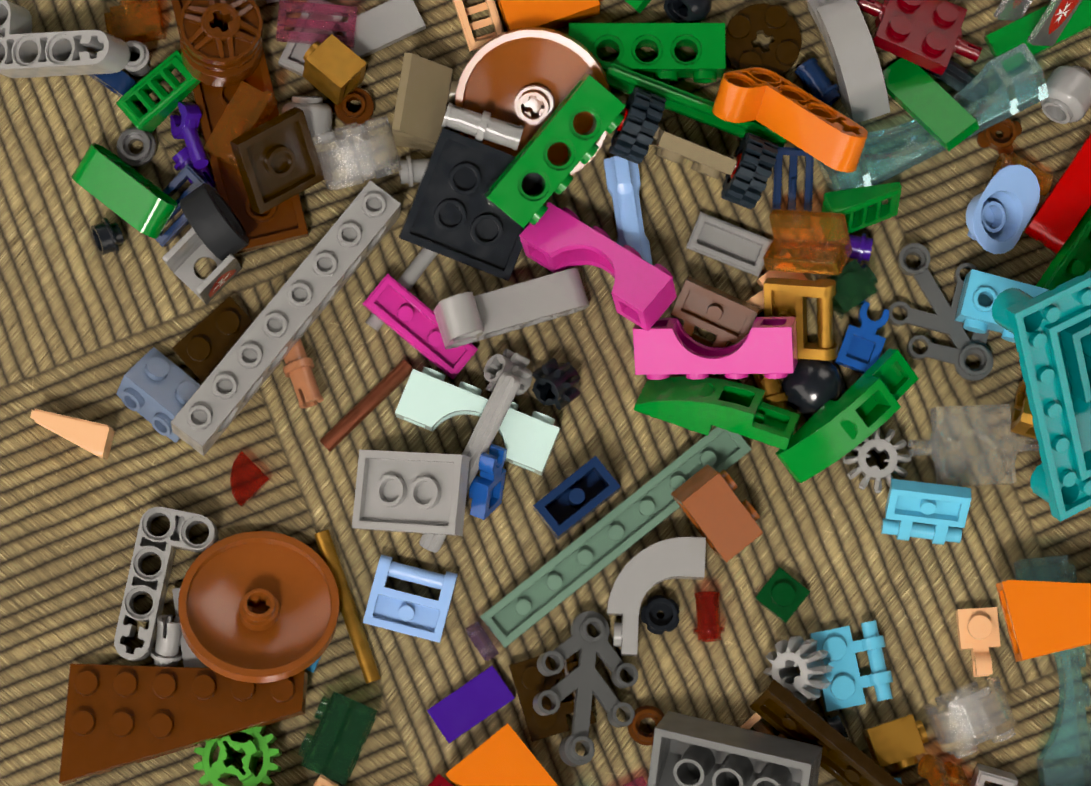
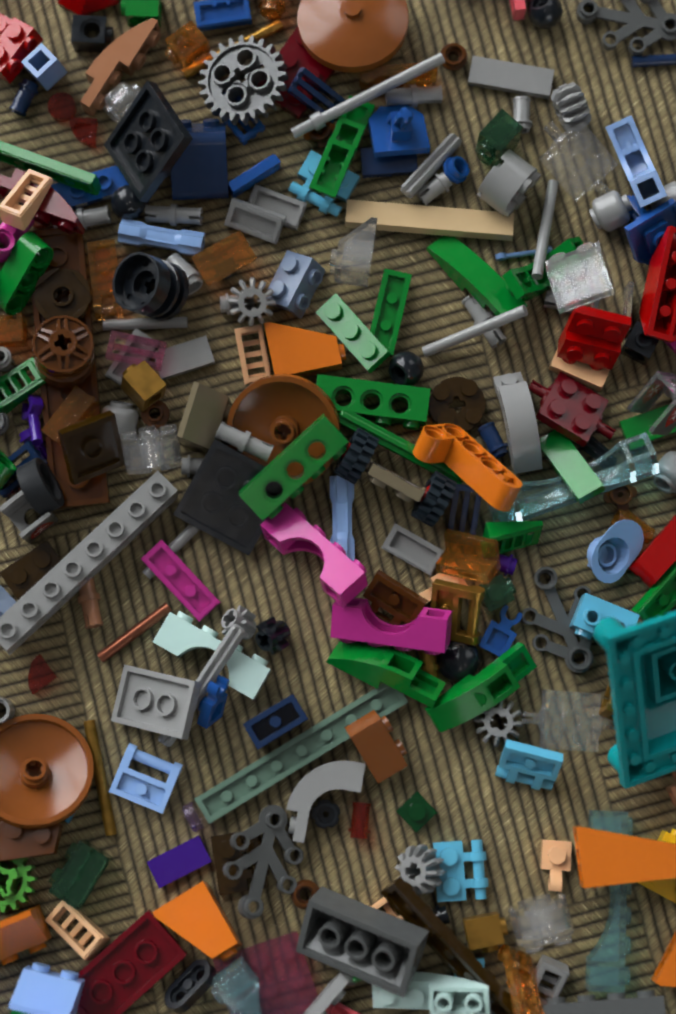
camera: 10 degrees right, 0 degrees up
(475, 318) = (246, 576): light grey beam -> none

